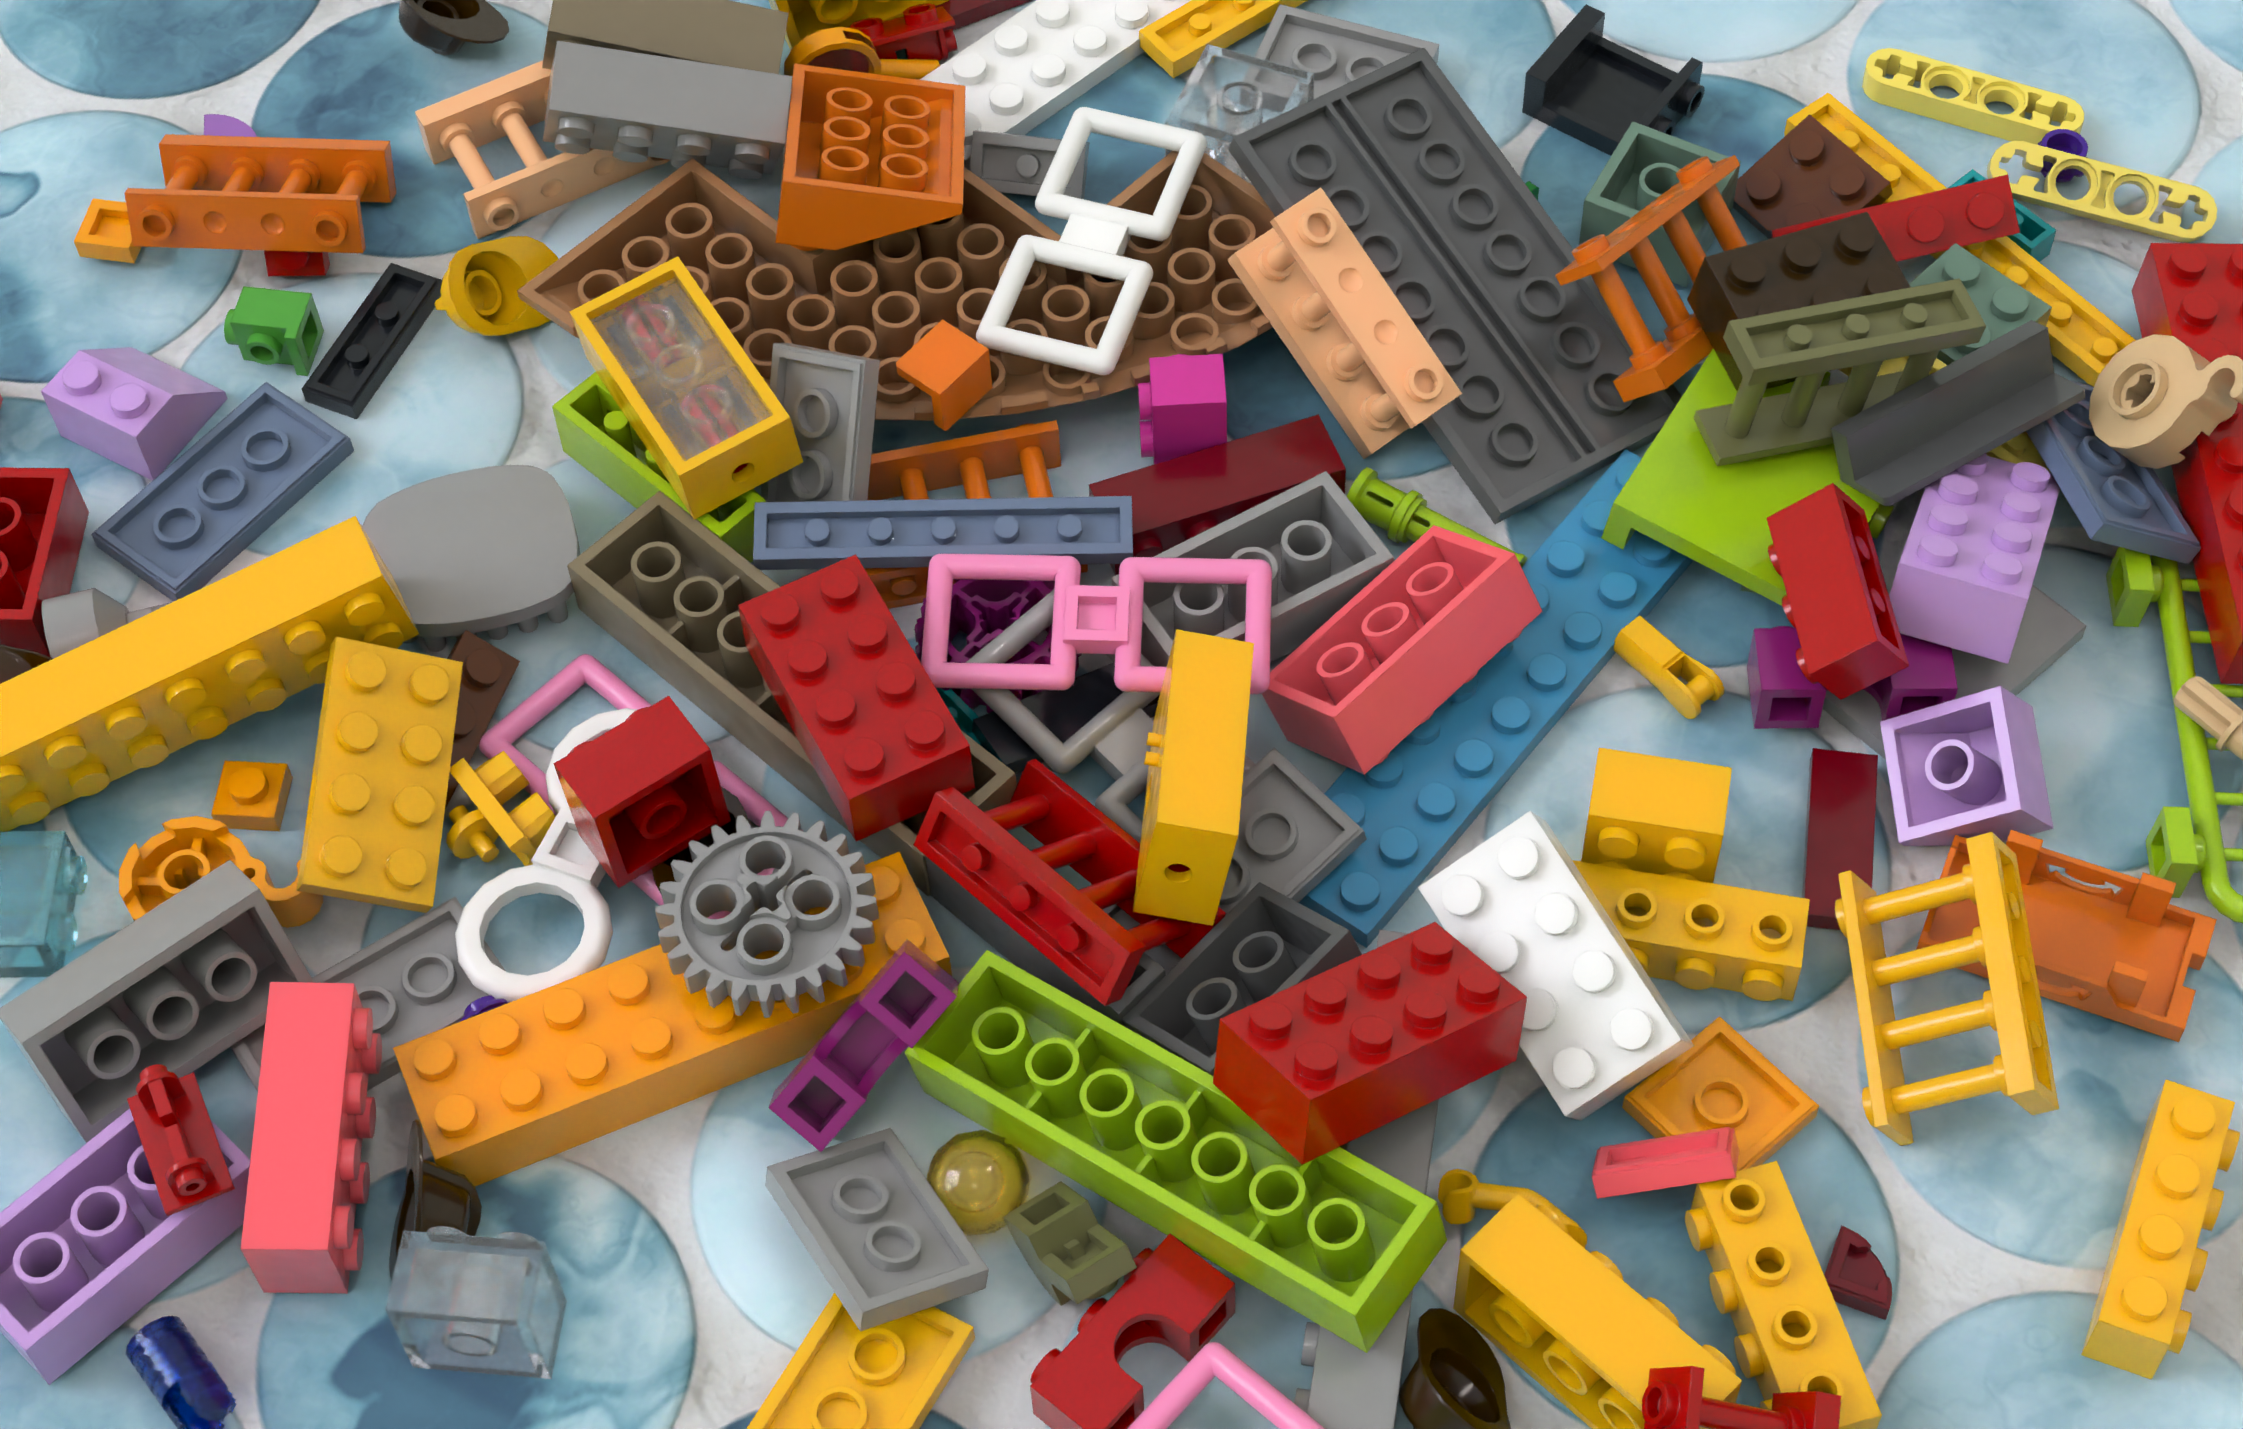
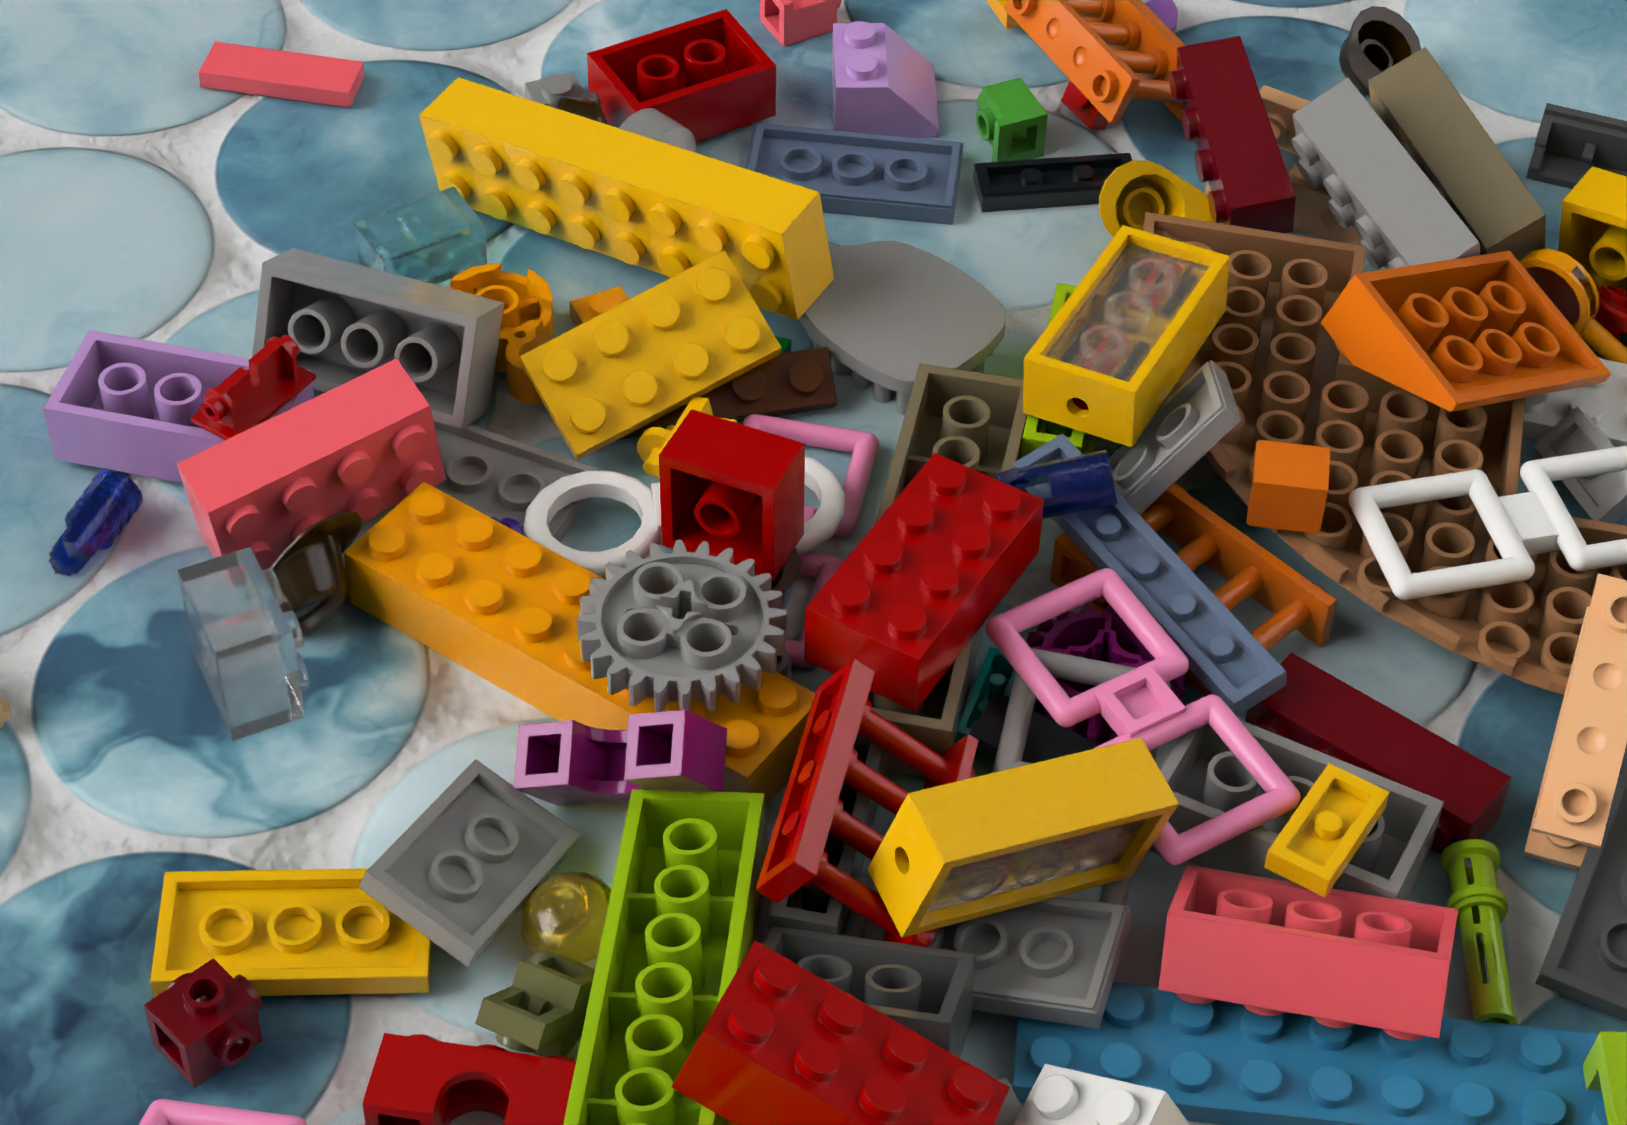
camera: 55 degrees right, 10 degrees down
(483, 172) = (1232, 137): none -> dark red brick
(829, 526) = (1074, 483): none -> clear blue hinge
(1184, 406) = (1426, 673): dark pink brick -> none
(1315, 563) = (1326, 830): none -> yellow plate

